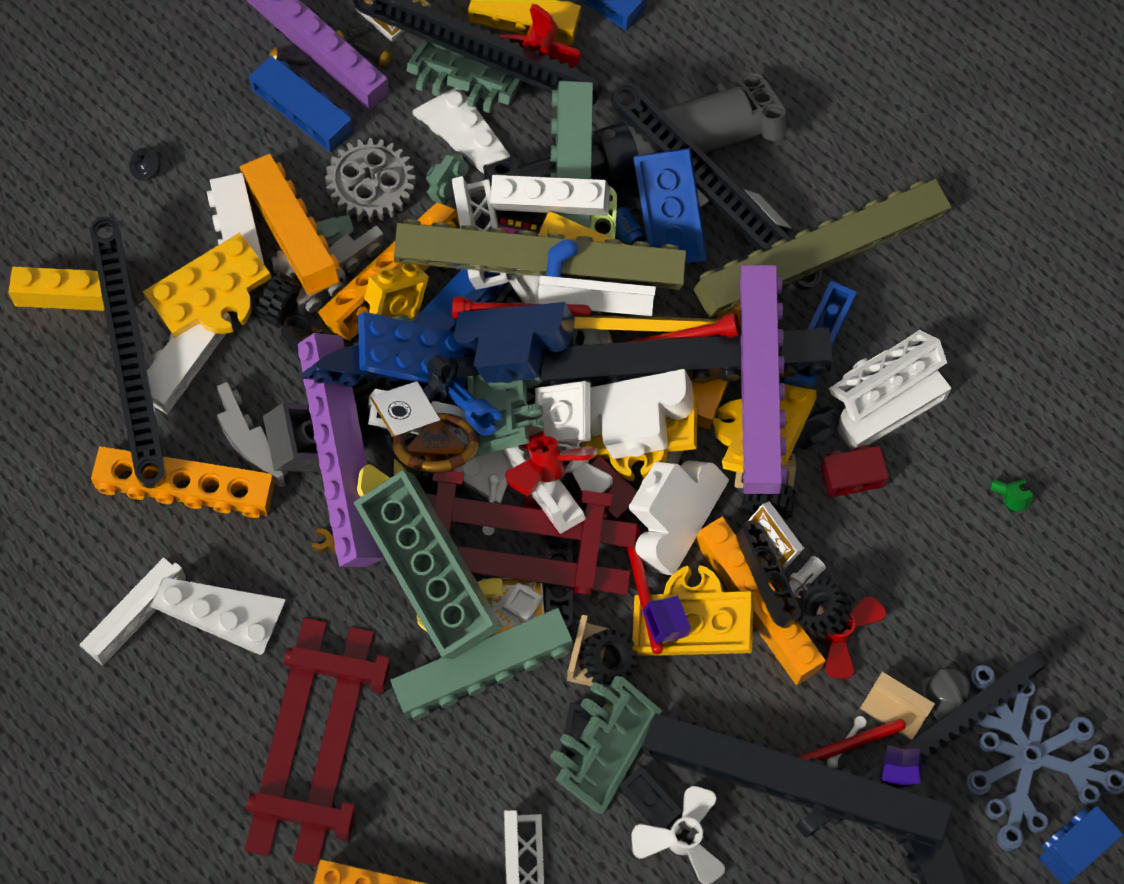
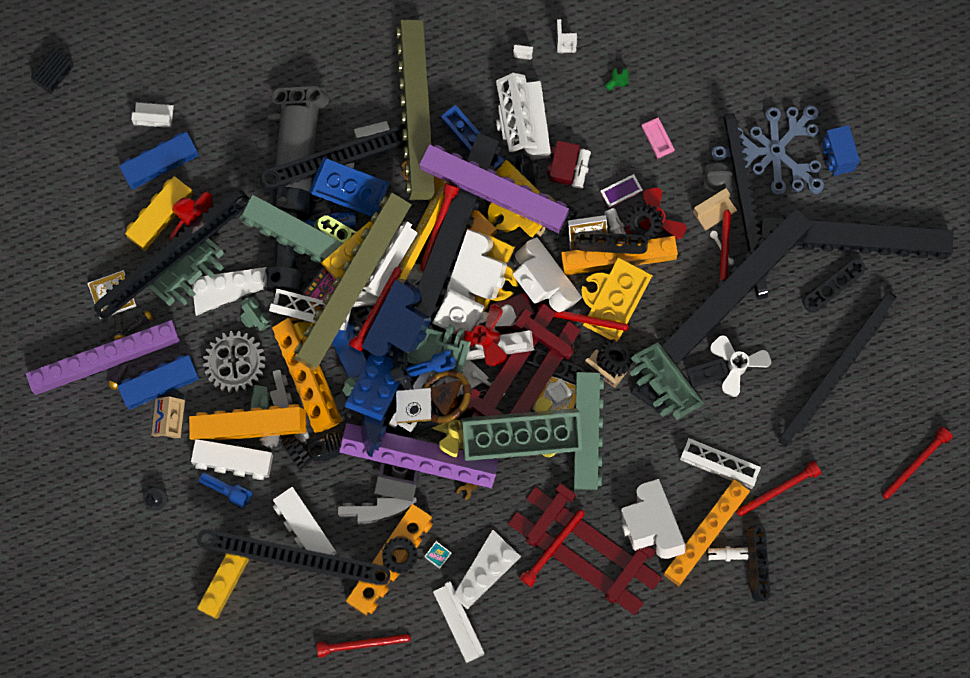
camera: 60 degrees left, 10 degrees up
(24, 450) = (324, 648): none -> red piece
(192, 501) = (403, 543): none -> black tyre
(194, 237) = (237, 495): none -> blue piece
(209, 288) = (270, 491): yellow plate -> none
(218, 543) = (437, 555): none -> tile
(238, 677) = (529, 576): none -> red piece
(261, 136) = (168, 417): none -> tan panel
(387, 809) = (652, 522): none -> white brick
(397, 291) = (330, 381): yellow plate -> none
(550, 194) = (315, 255): white brick -> none
(558, 254) = (362, 268): blue arm -> none
(666, 619) = (611, 313): dark purple piece -> none
(855, 567) = (621, 191): none -> dark purple tile
(858, 498) = (581, 168): none -> white pin
(902, 766) = (758, 224): dark purple piece -> none
(959, 584) = (657, 137): none -> bright pink tile
(980, 353) = (523, 52): none -> white tile
(1025, 394) = (565, 42): none -> white panel

